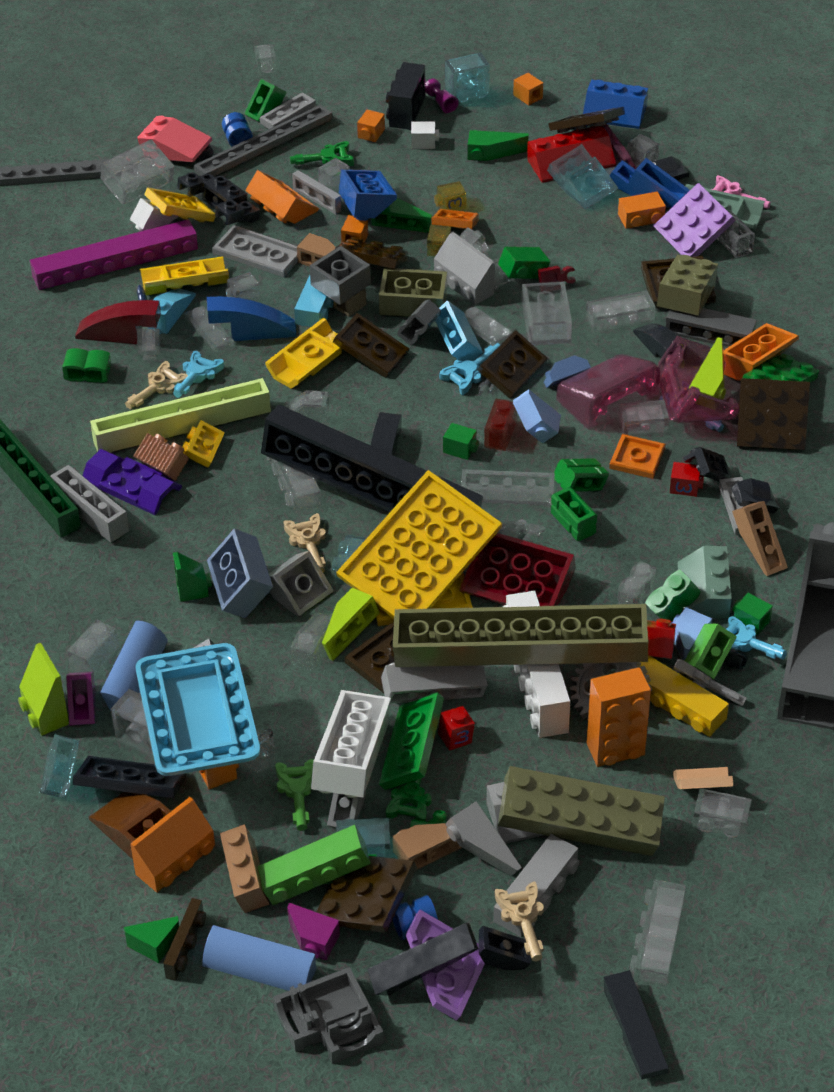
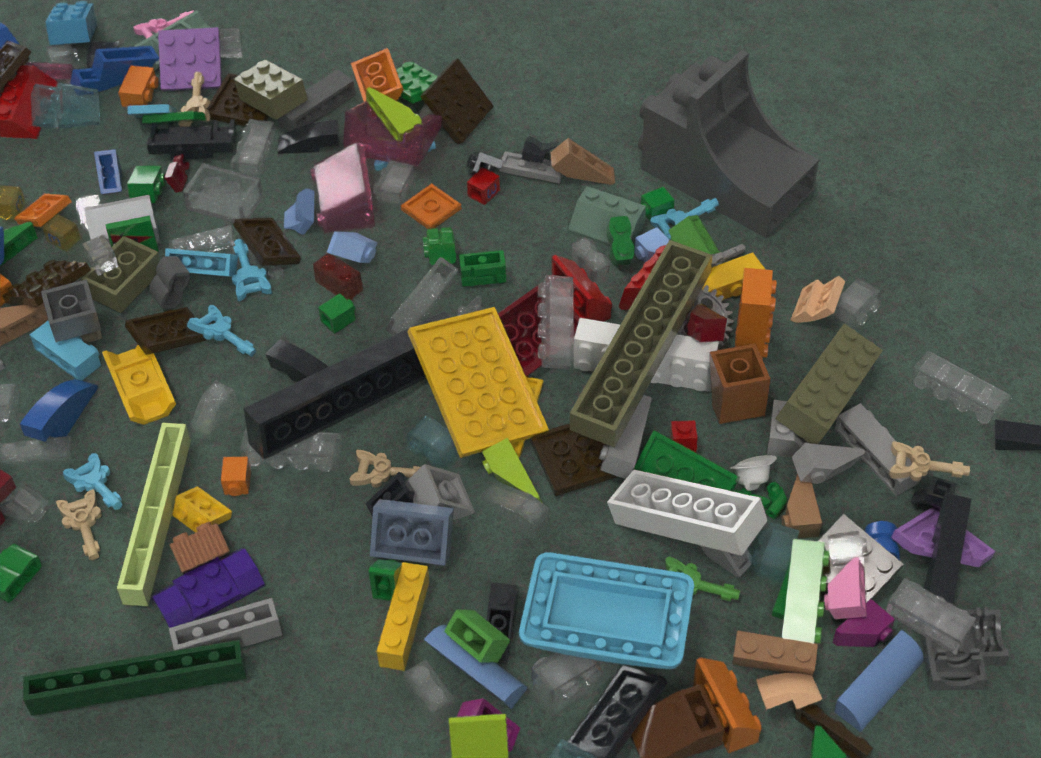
camera: 65 degrees left, 5 degrees up
(154, 641) = (477, 636): none -> bright green brick
(161, 604) = (403, 616): none -> yellow brick
(207, 886) = (786, 687): none -> light nougat slope
(246, 450) = (235, 475): none -> orange brick
(276, 551) = (395, 490): none -> black slope
(328, 891) = (847, 592): none -> bright pink slope
(337, 968) = (930, 615): none -> clear brick
(368, 870) = (846, 547): none -> clear brick
(395, 377) = (219, 330): none -> medium azure piece
(409, 264) = (100, 255): none -> clear brick
(448, 793) = (754, 471): none -> white piece
(457, 279) = (136, 229): none -> green tile
(527, 233) = (108, 171): none -> blue slope
(534, 734) = (738, 383): none -> dark orange slope
(537, 574) = (556, 322): none -> clear brick
(576, 679) = (706, 324): none -> dark red slope
(594, 582) = (587, 298): none -> red slope
(597, 270) = (192, 142): none -> black bracket
(613, 229) = (141, 110): none -> medium azure tile
(614, 244) = (176, 117): none -> green tile
(645, 253) = (197, 102): none -> tan piece
(678, 134) = (71, 23): none -> dark azure brick

